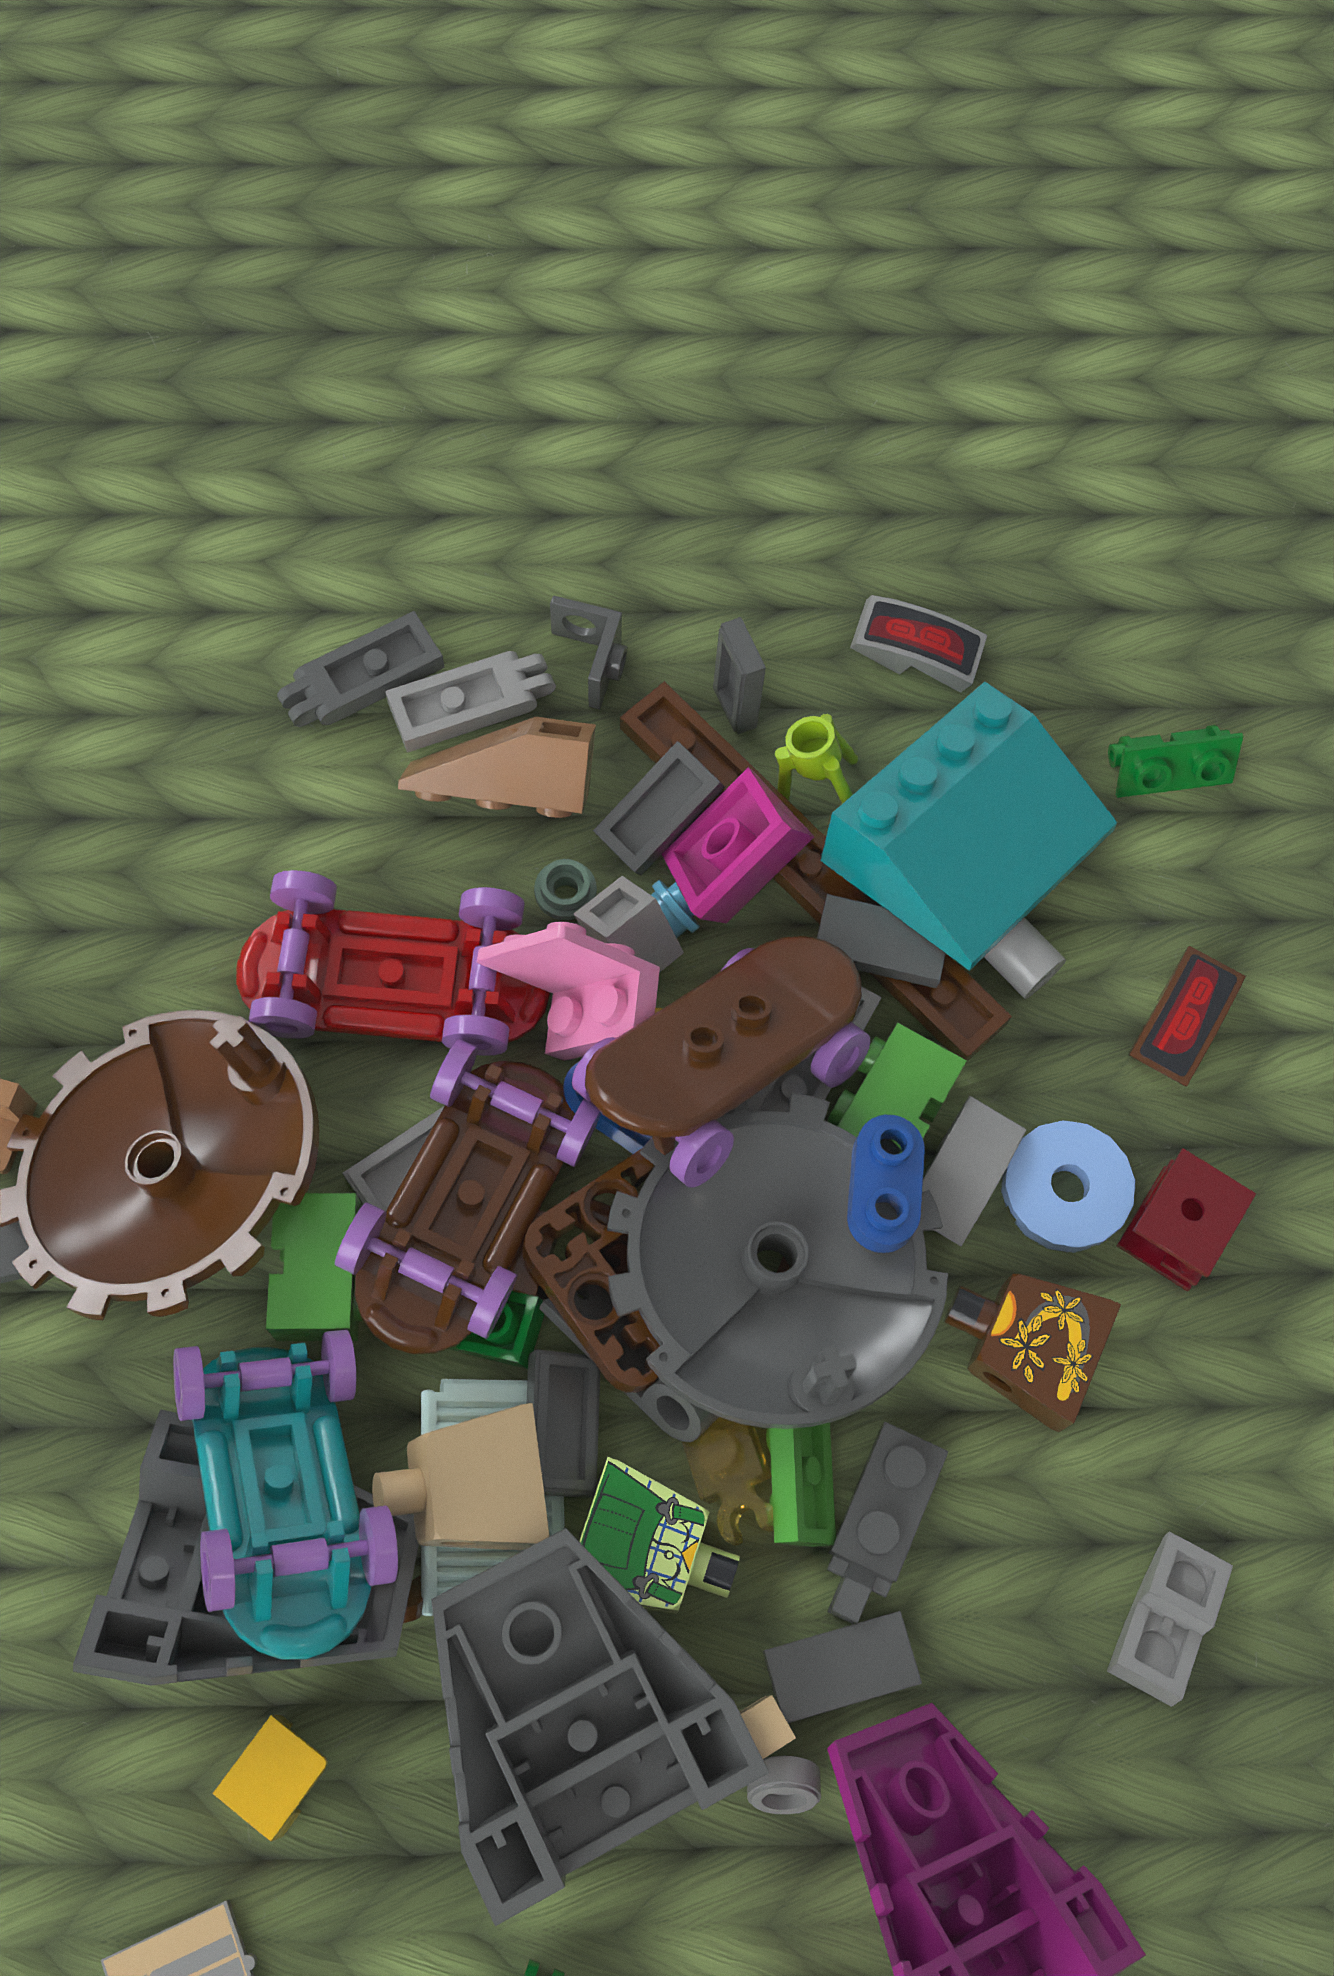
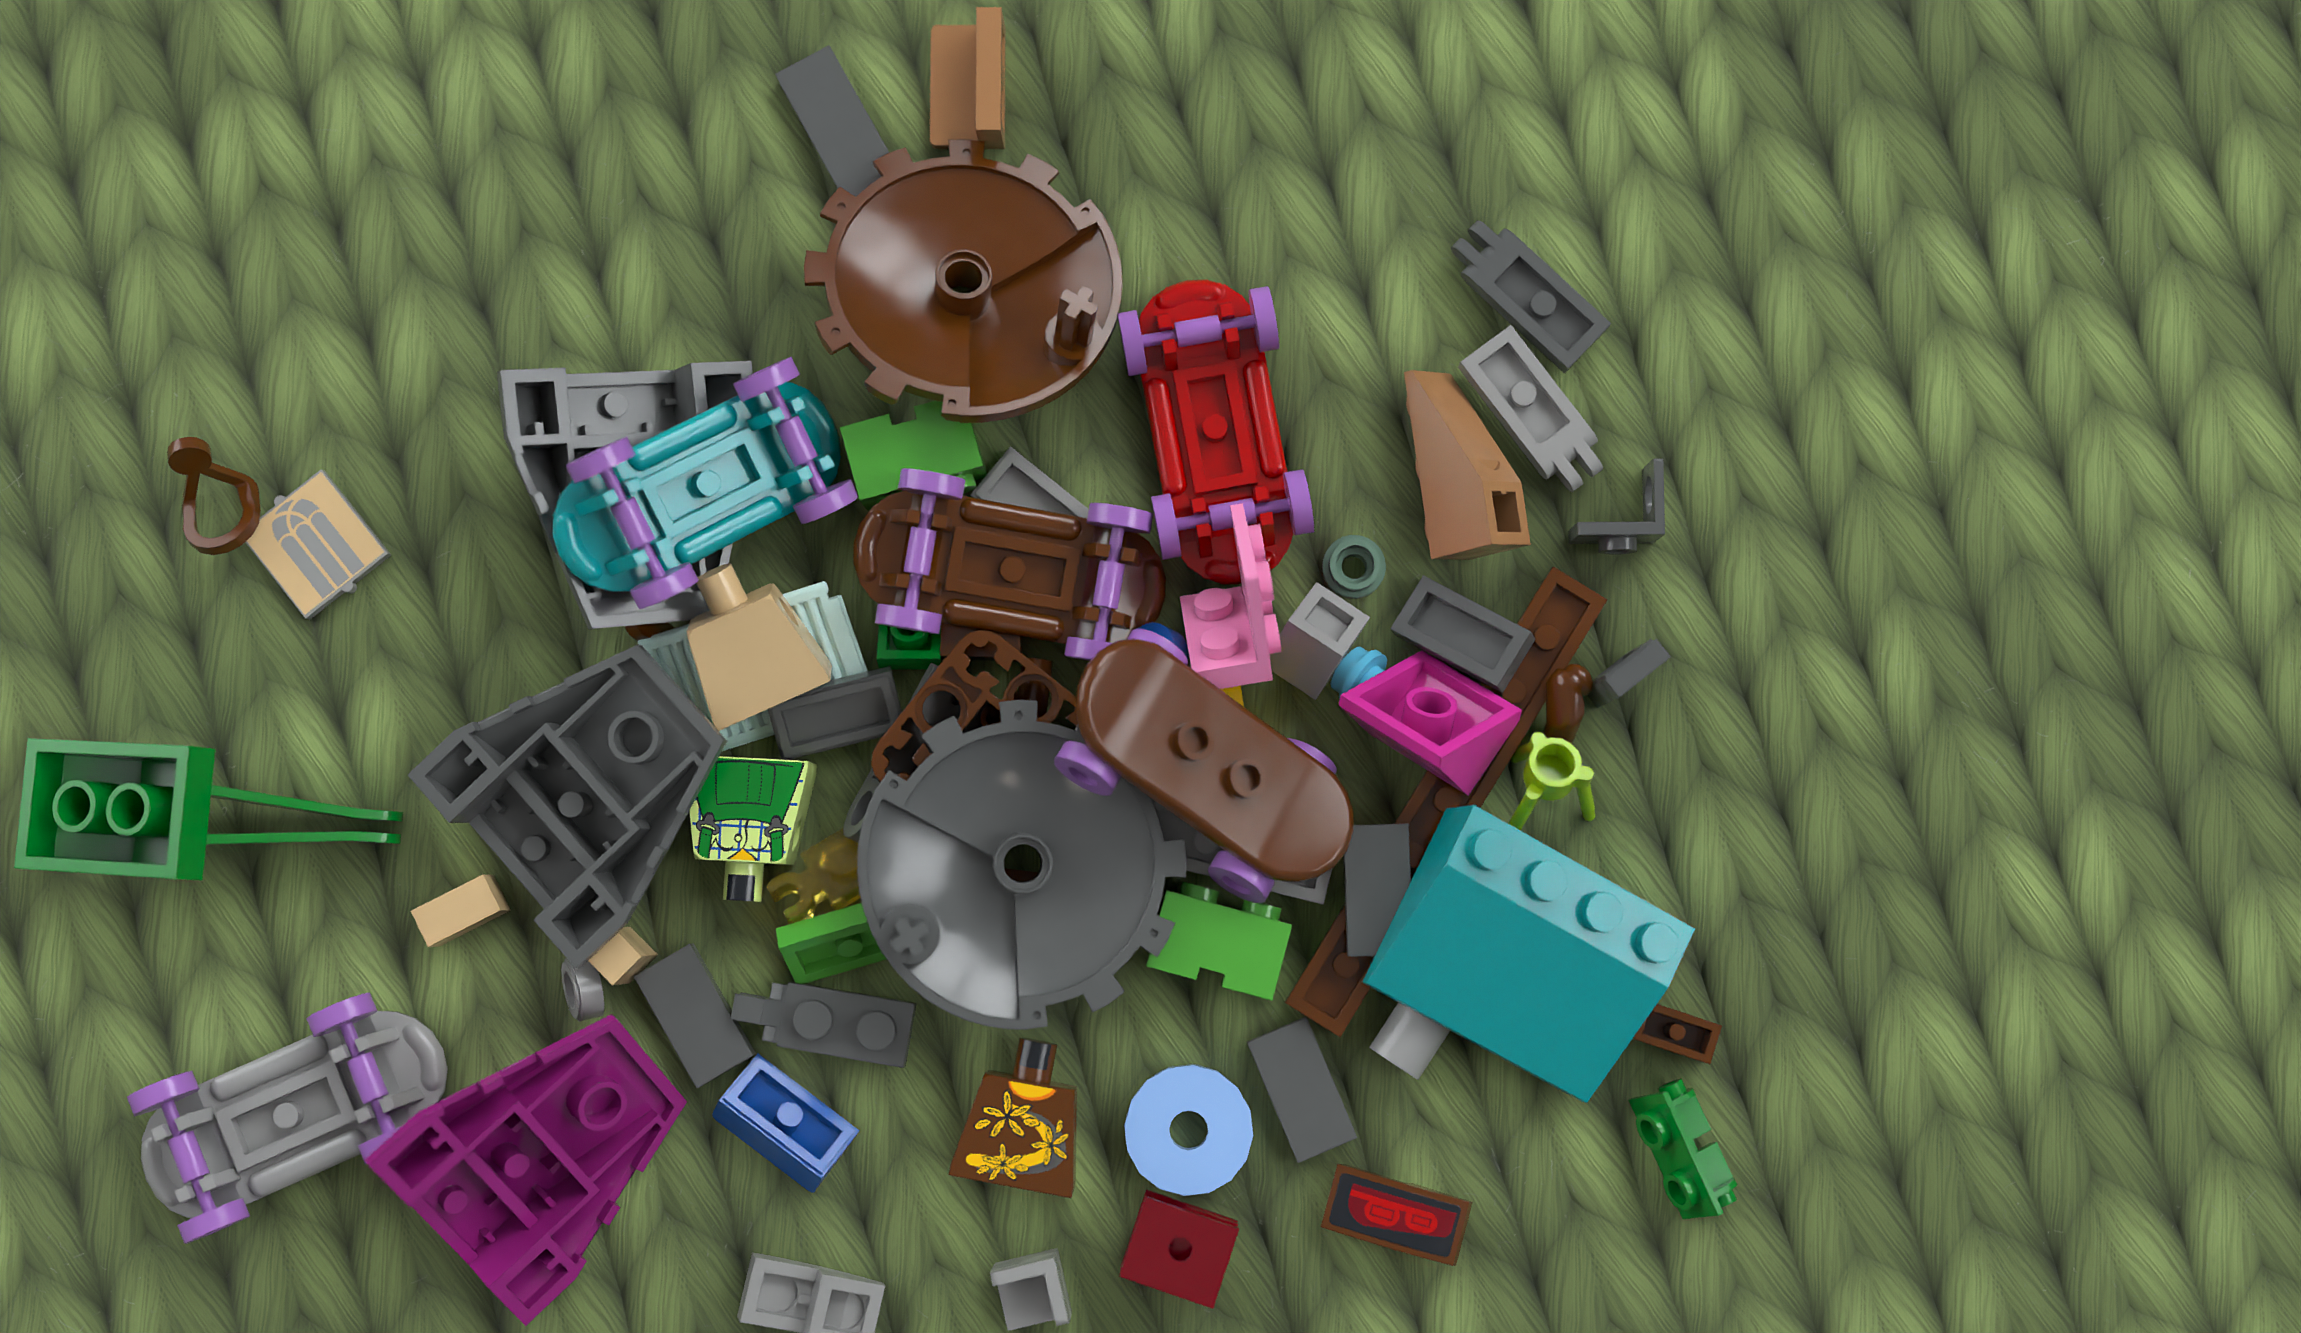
camera: 85 degrees right, 15 degrees up
(272, 1778) = (480, 558): yellow panel -> none
(661, 1915) = (460, 910): none -> tan piece
(749, 738) = (1565, 701): none -> reddish brown arm
(886, 1179) = (1115, 948): blue plate -> none
(914, 636) = (1742, 851): slope -> none
(970, 1166) = (1173, 1026): light grey slope -> none
(978, 1598) = (784, 1123): none -> blue slope
(1050, 1071) = (1302, 1089): none -> dark grey tile
(1074, 726) = (1680, 1033): none -> reddish brown piece
(1199, 1375) = (1032, 1289): none -> light grey panel

